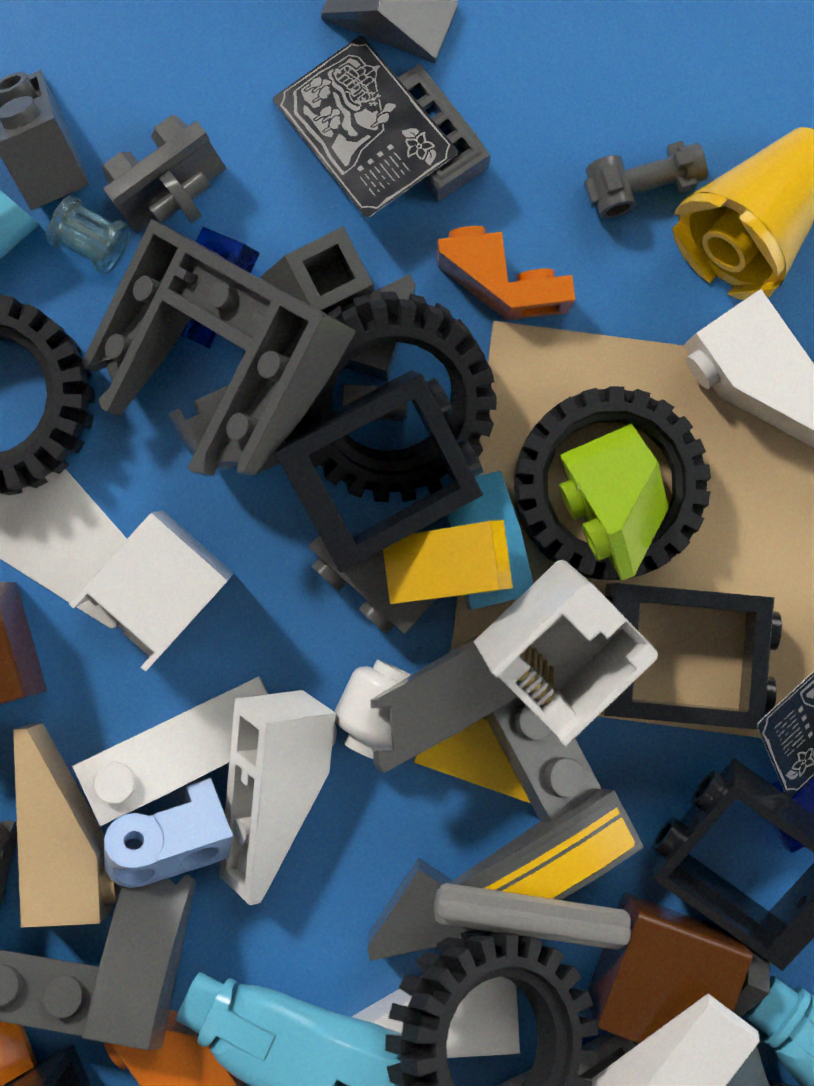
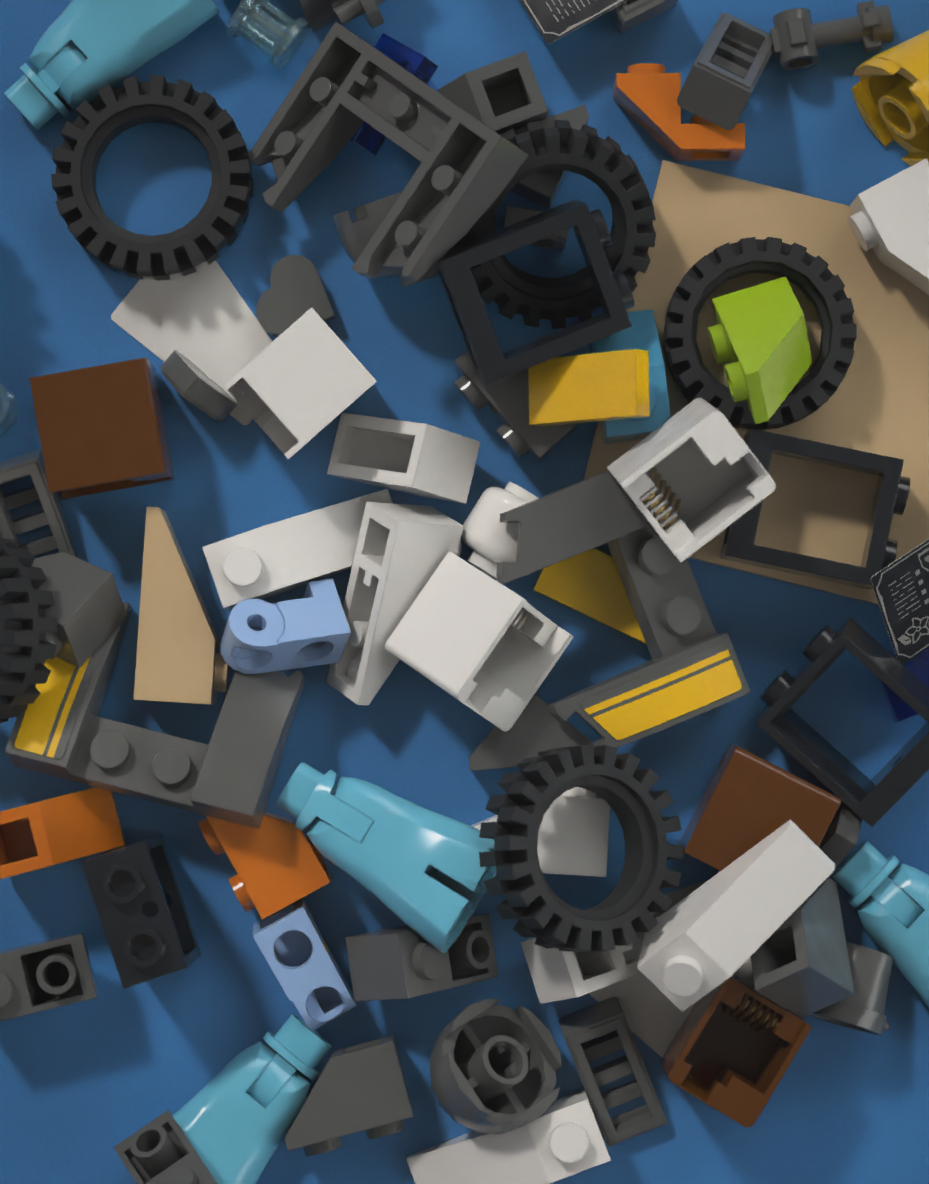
camera: 10 degrees right, 0 degrees up
(51, 596) = (197, 386): none -> dark grey tile
(143, 490) = (292, 293): none -> dark grey tile
(270, 647) = (404, 457): none -> white slope
(362, 832) = (478, 641): none -> white piece
(531, 916) = (634, 736): light grey axle -> none
(547, 226) = (726, 71): none -> dark grey slope

